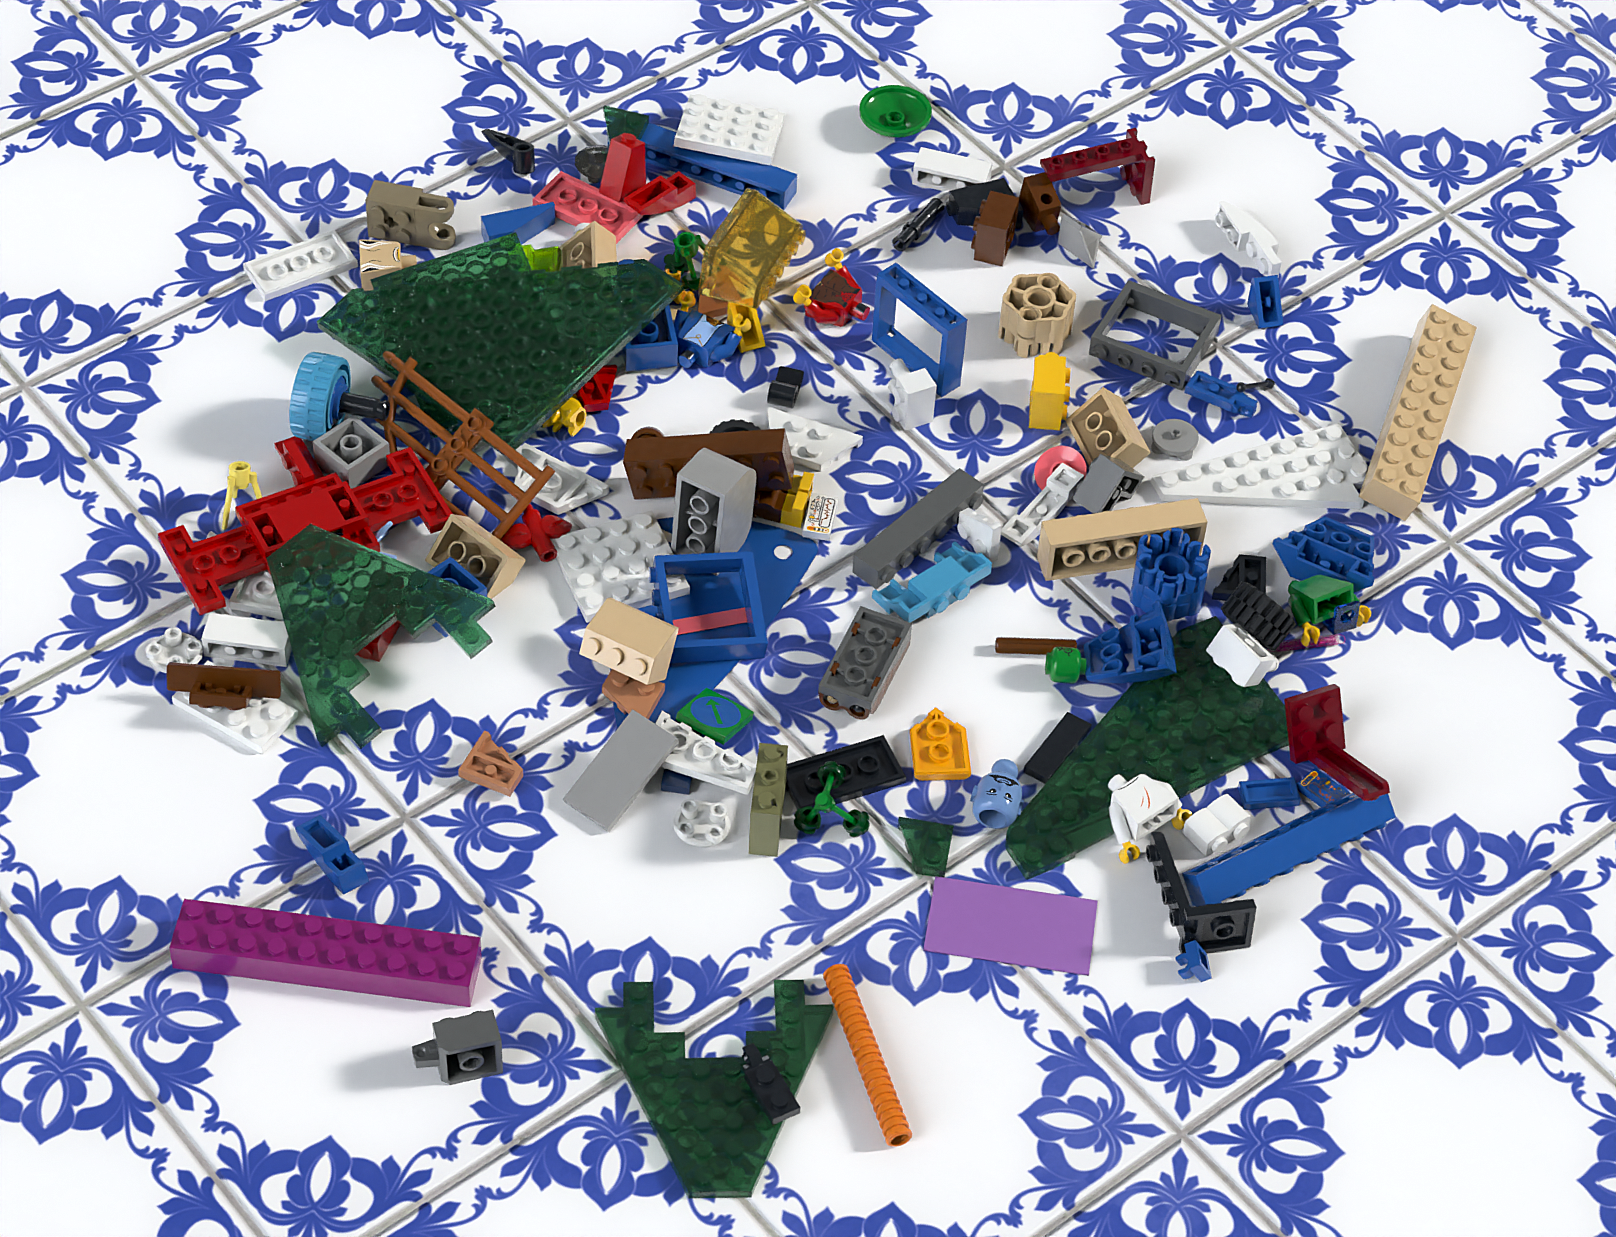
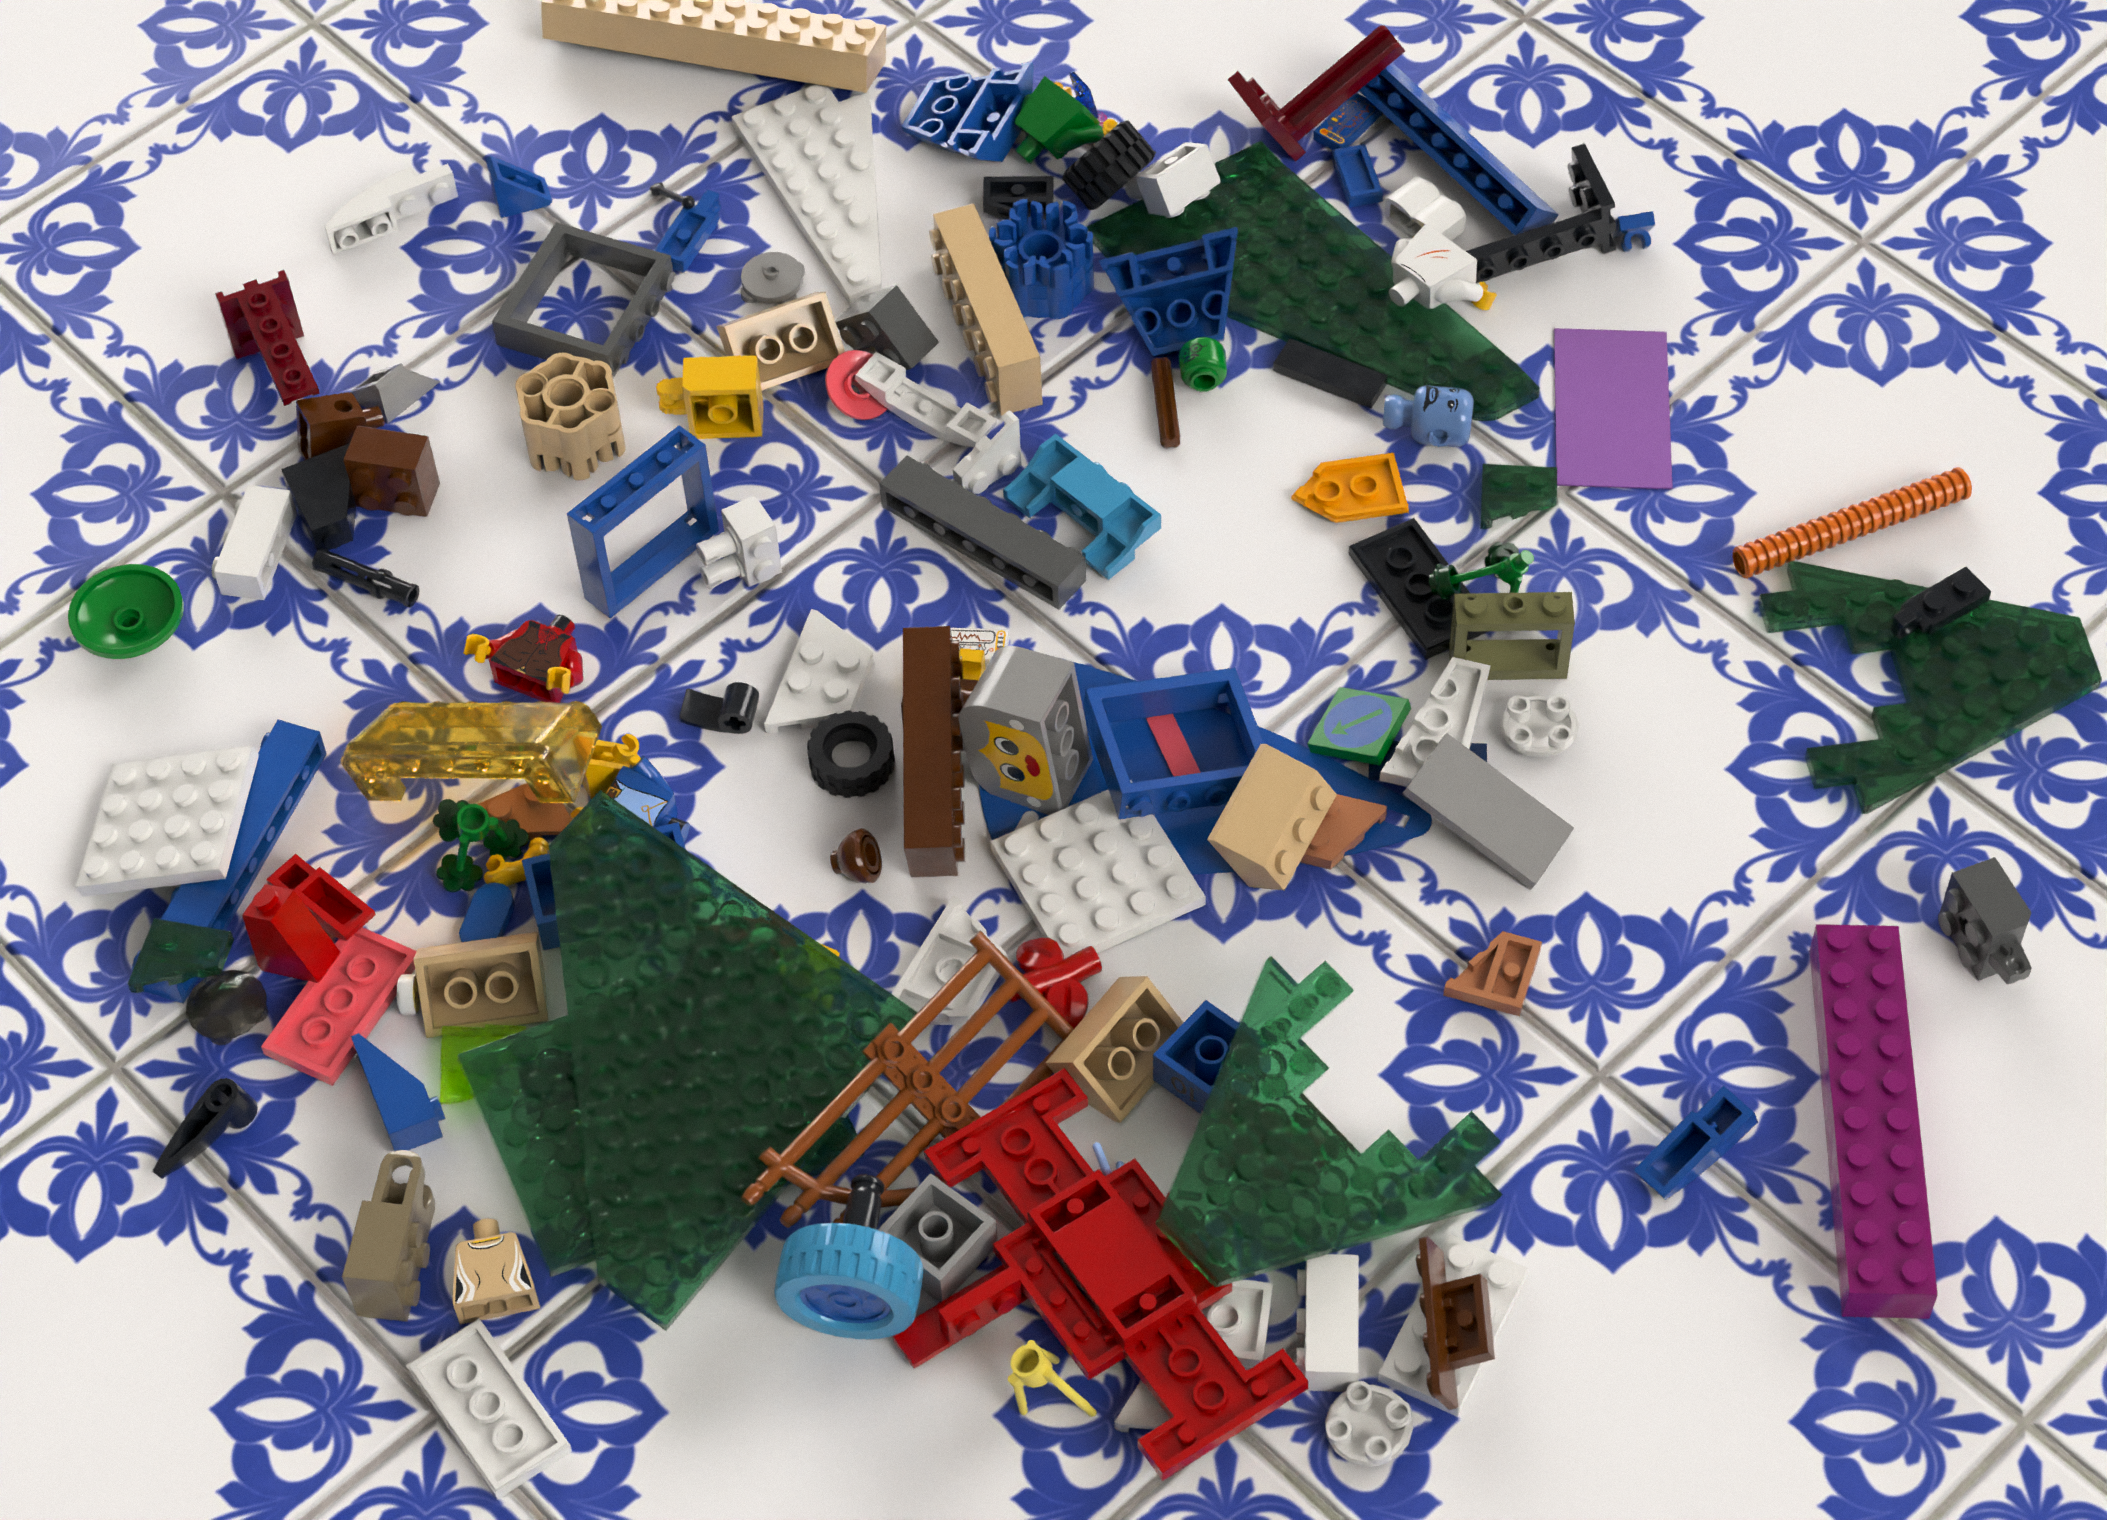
camera: 90 degrees left, 5 degrees up
(865, 663) = (1246, 563): dark grey piece -> none

